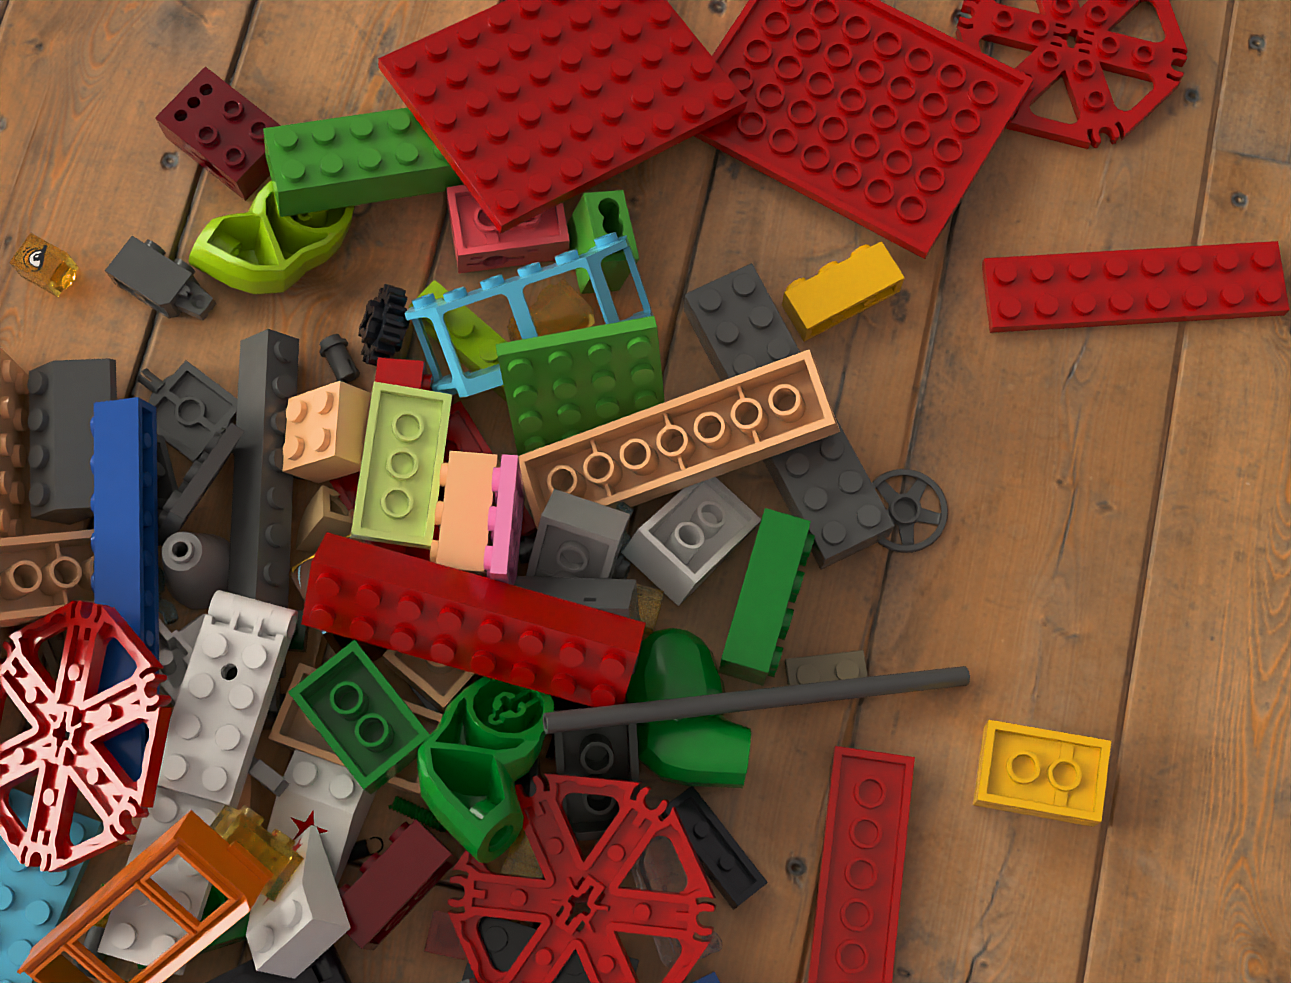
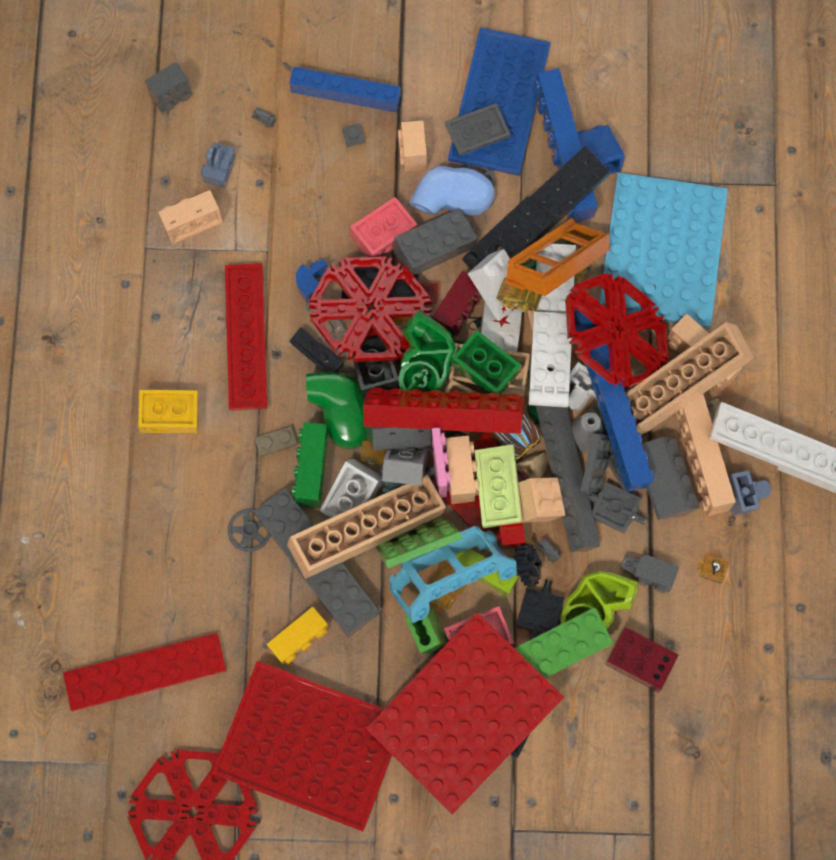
camera: 170 degrees right, 0 degrees up
(267, 777) = (523, 334): light grey bar -> none
(385, 252) = (540, 610): none -> black plate
(753, 699) = (305, 412): dark grey piece -> none

